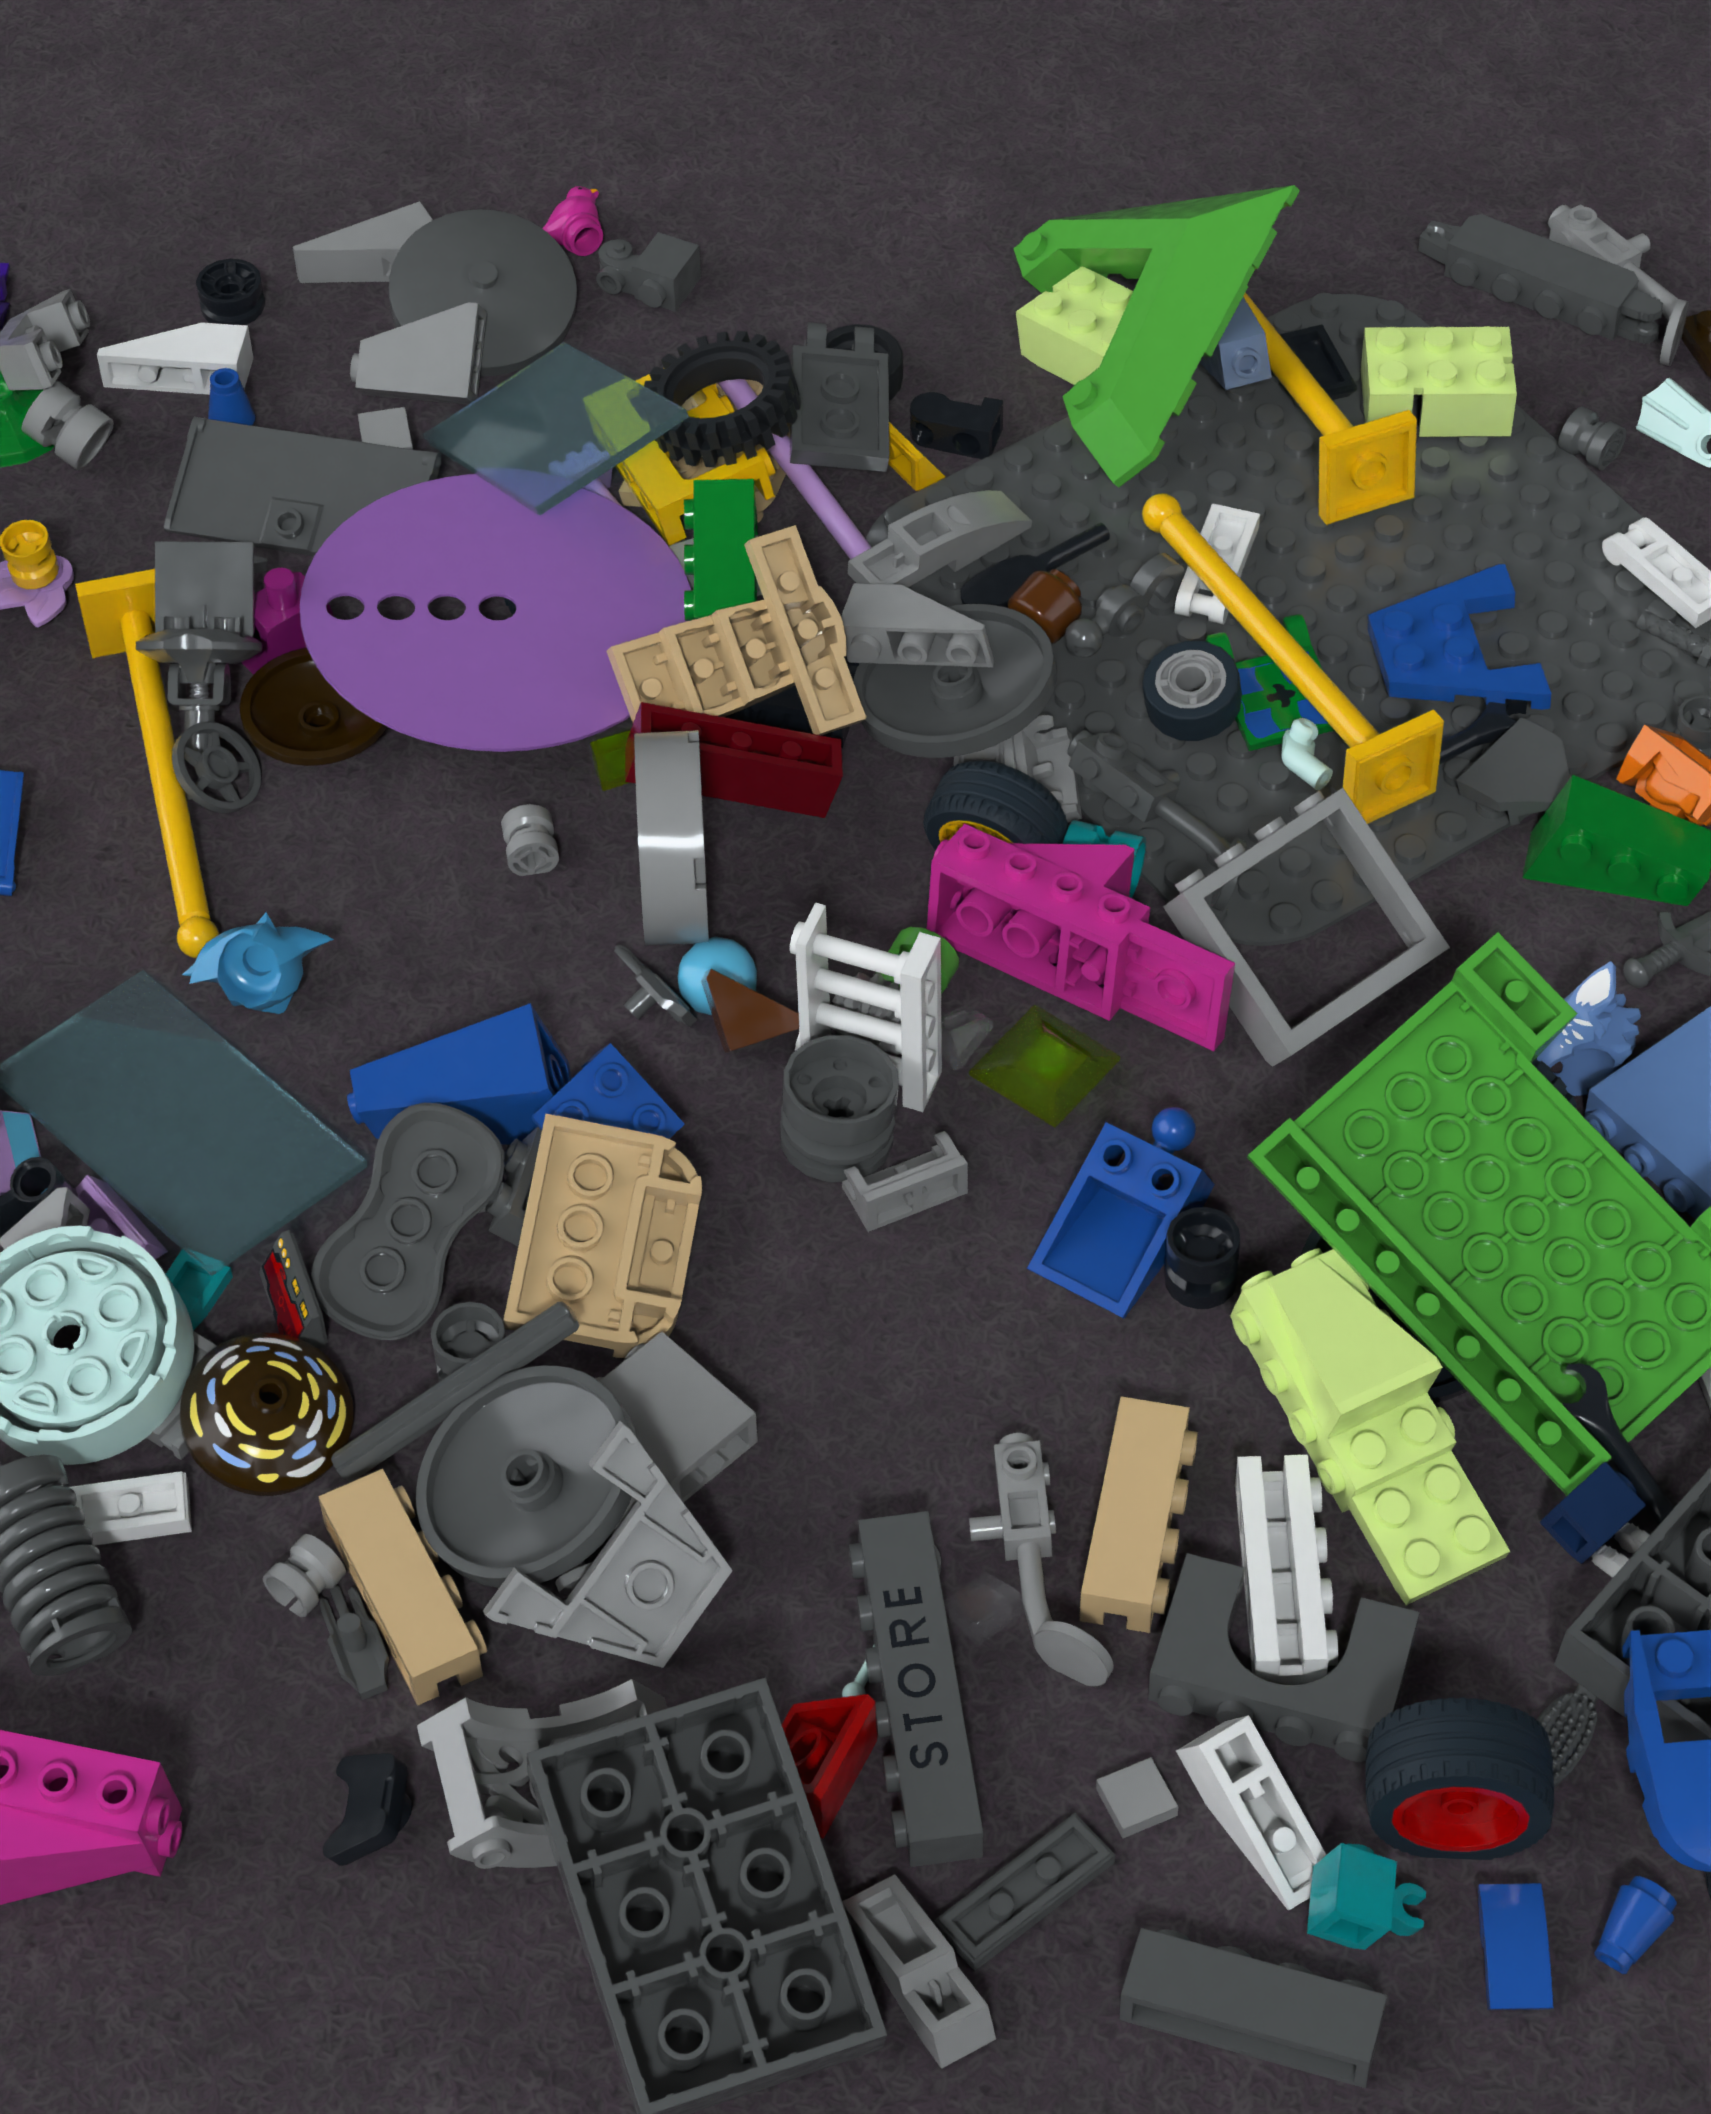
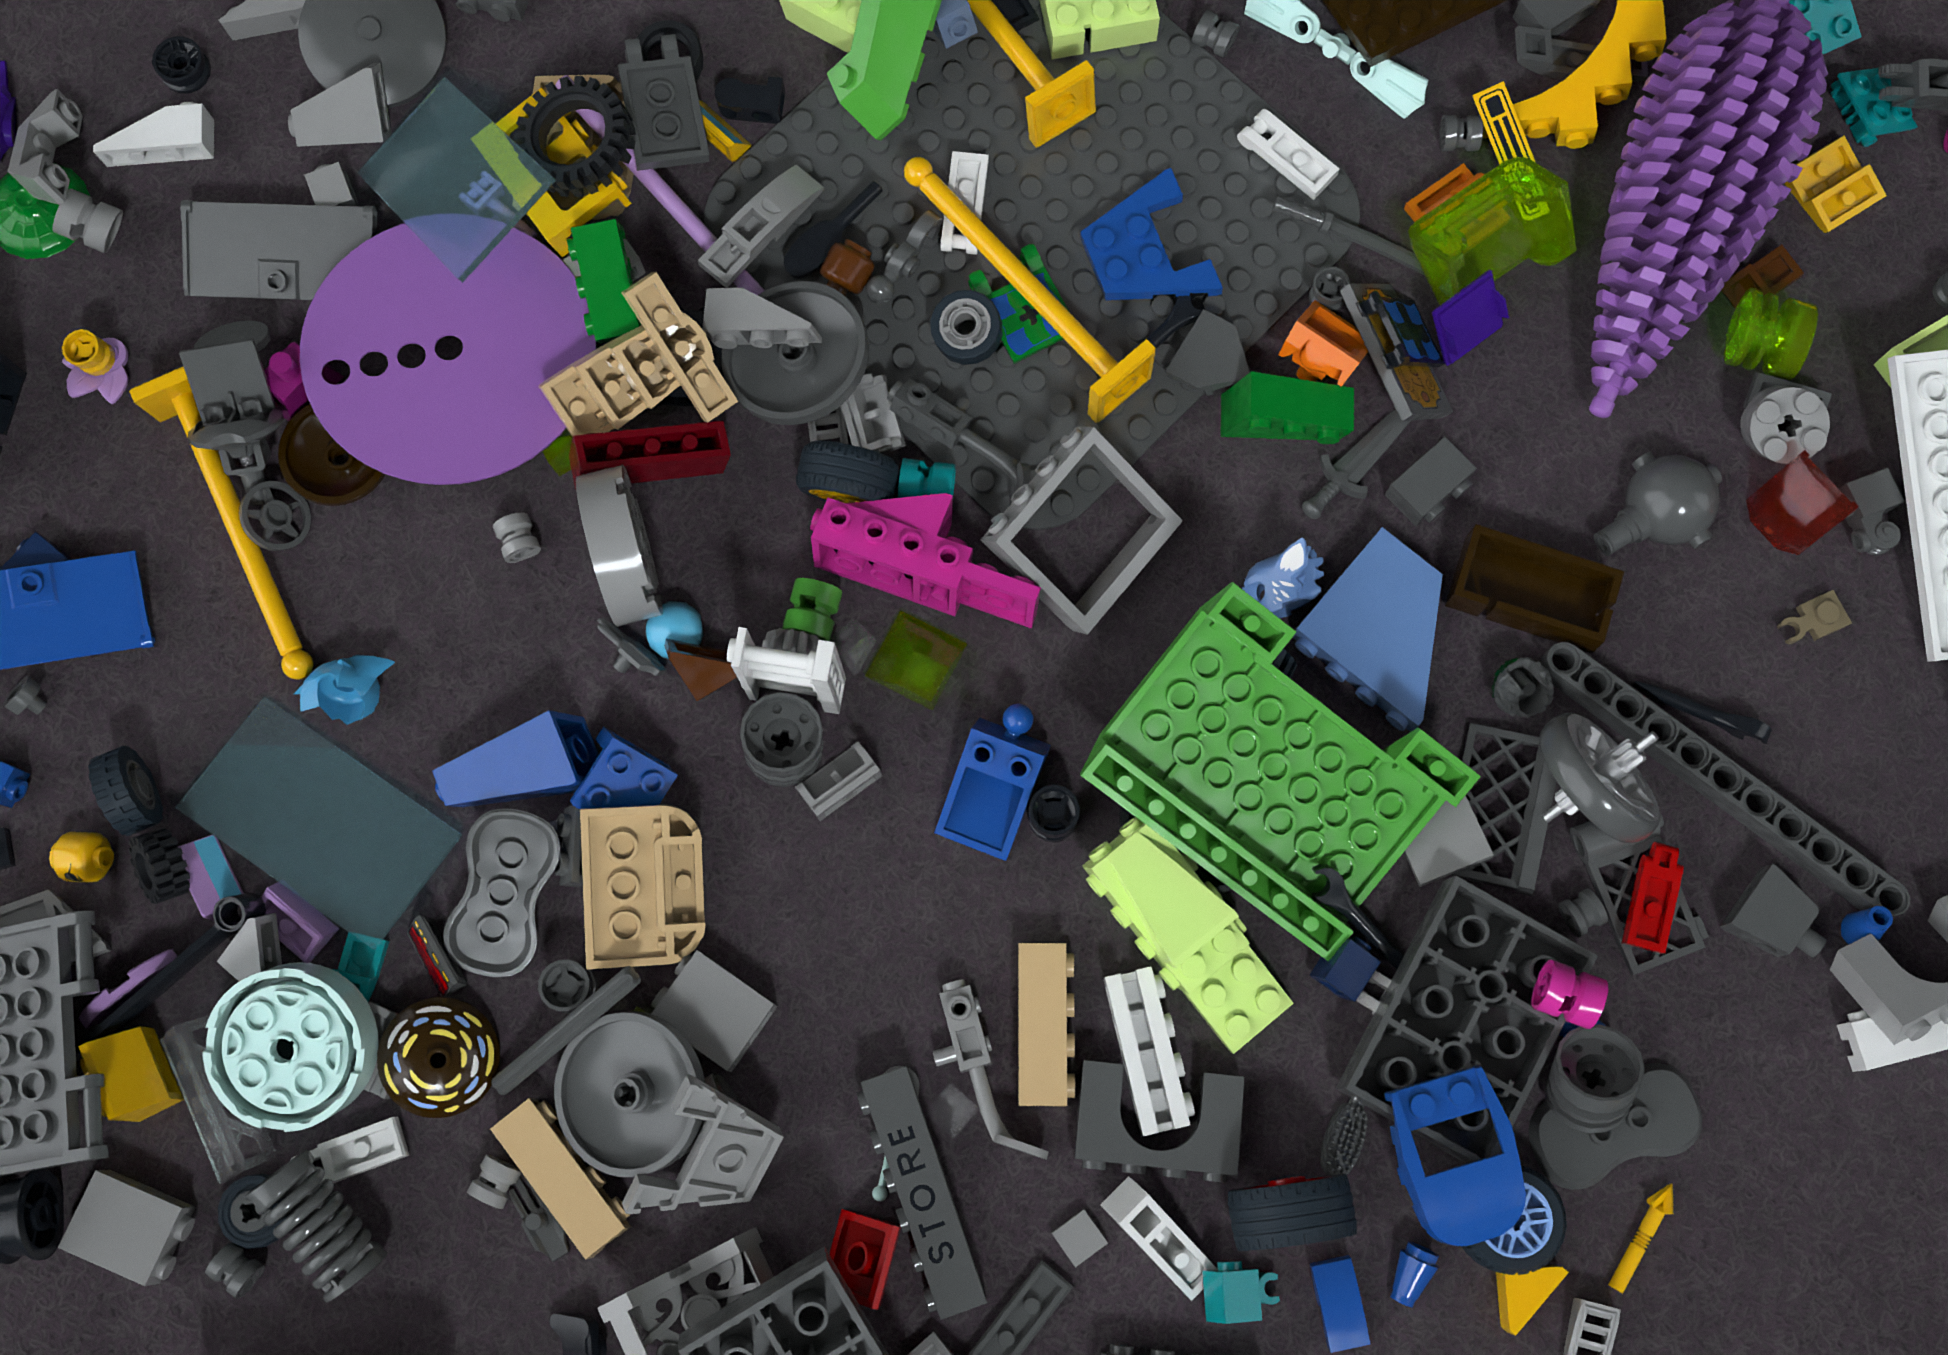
camera: 10 degrees left, 25 degrees up
(228, 398) = (206, 178): blue cone -> none
(1299, 756) = (1050, 364): light aqua arm -> none

